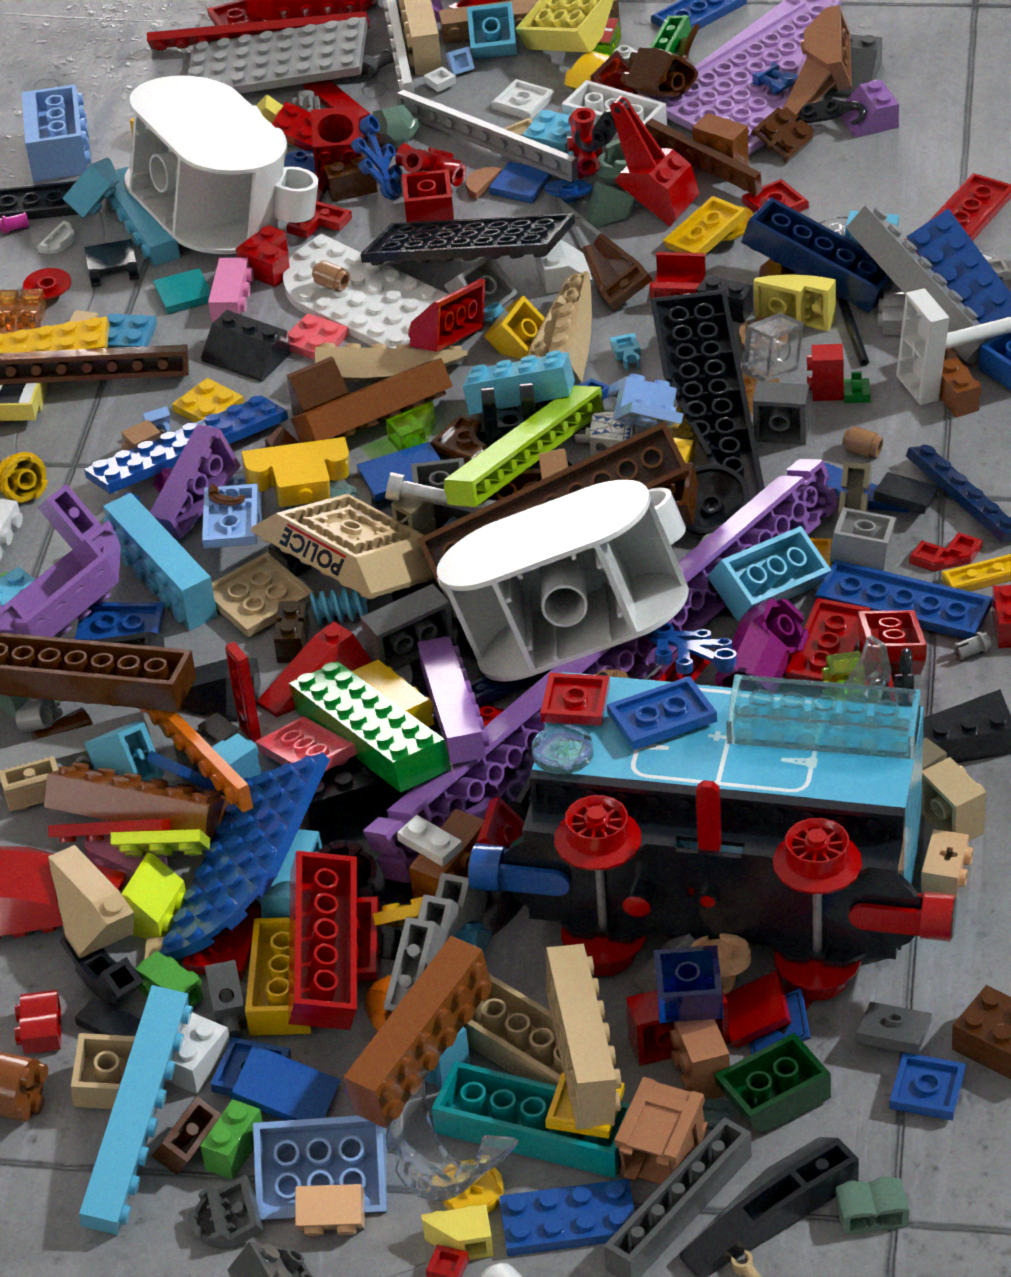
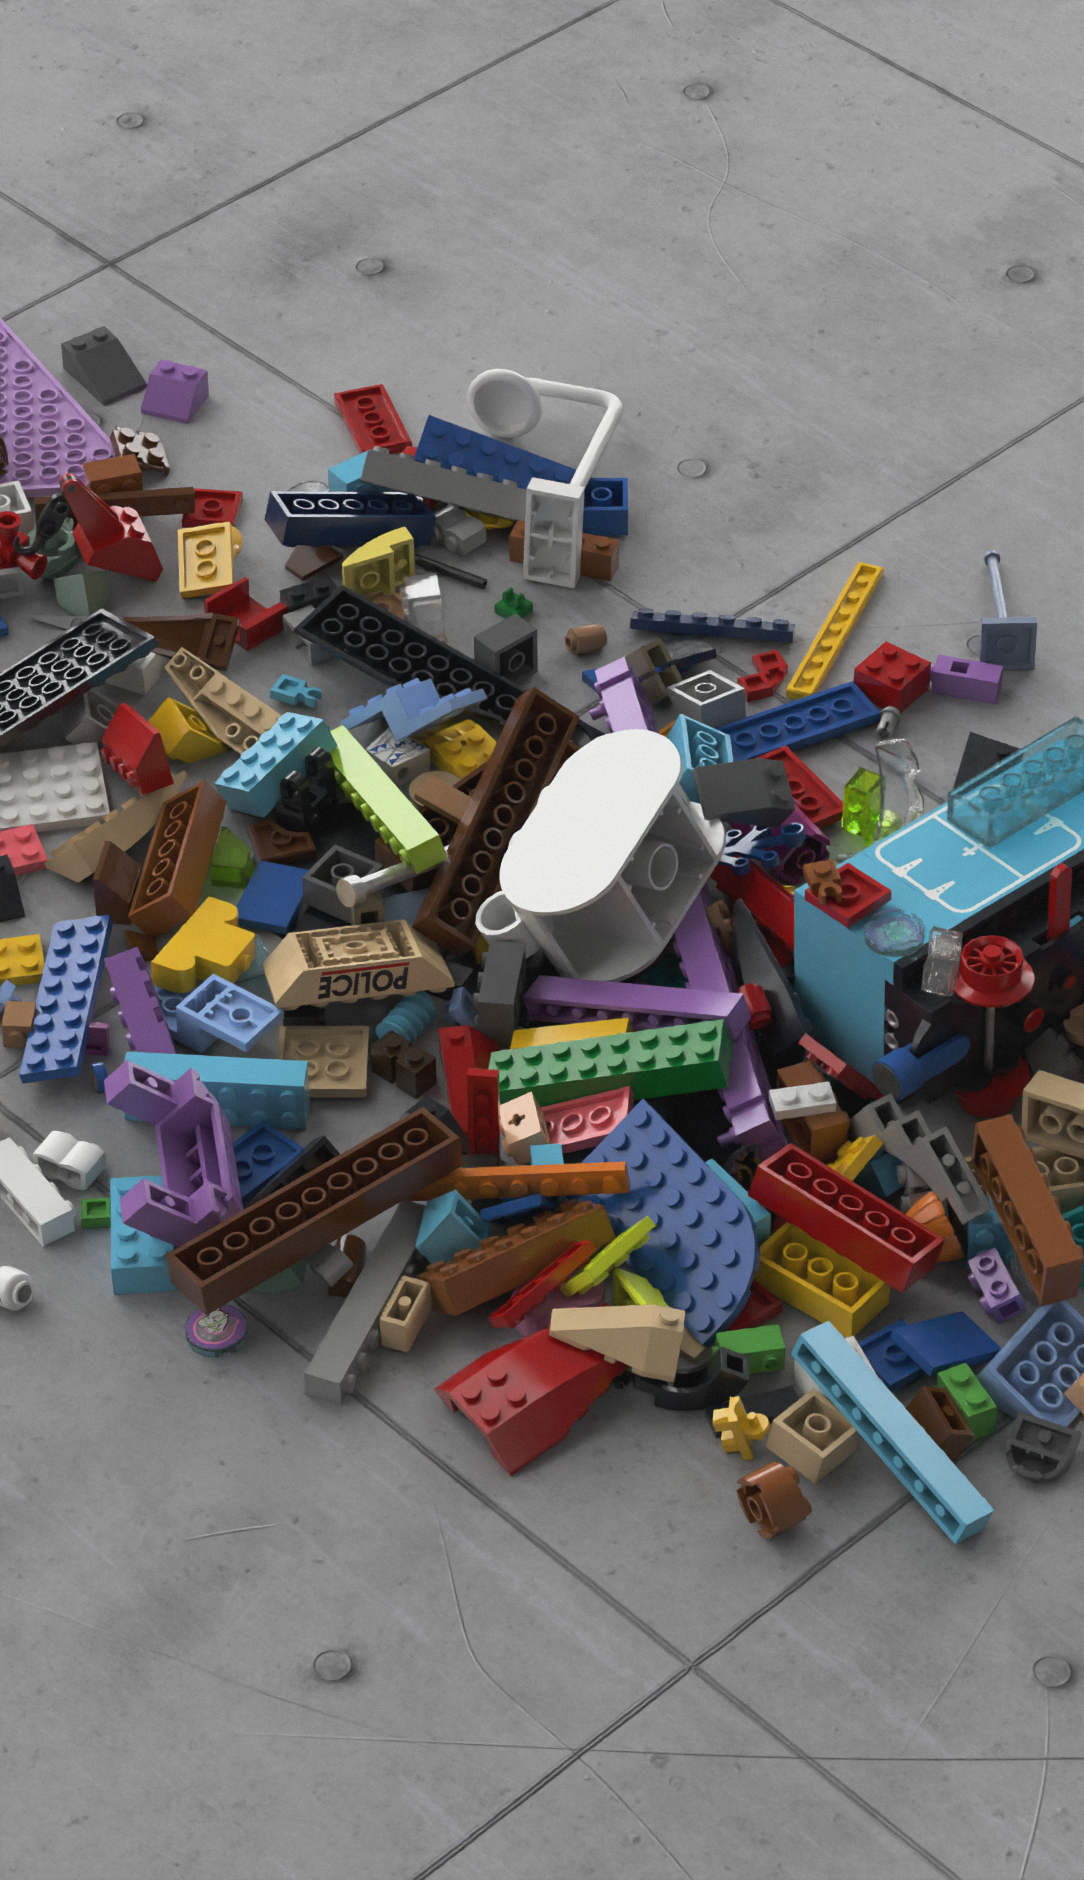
camera: 55 degrees left, 0 degrees up
(35, 543) = (69, 1160): none -> white brick
(39, 1022) = (700, 1453): red brick -> none
(73, 1019) = (739, 1427): none -> yellow hips
(213, 493) = (209, 1003): reddish brown piece -> none
(227, 1005) = (807, 1311): dark grey torso -> none
(274, 724) = (523, 1126): none -> light nougat brick
(514, 755) = (757, 1005): none -> red brick
(561, 793) = (942, 962): none -> clear slope
(566, 672) = (824, 879): none -> dark orange plate
(568, 190) = (34, 601): blue dish -> none
(661, 713) = (919, 860): blue plate -> none
(720, 601) = (745, 792): none -> dark grey slope
(779, 83) = (73, 410): blue piece -> none
(826, 66) = (106, 372): nougat slope -> none
(827, 372) = (489, 600): red brick -> none
(903, 642) = (843, 748): red slope -> none

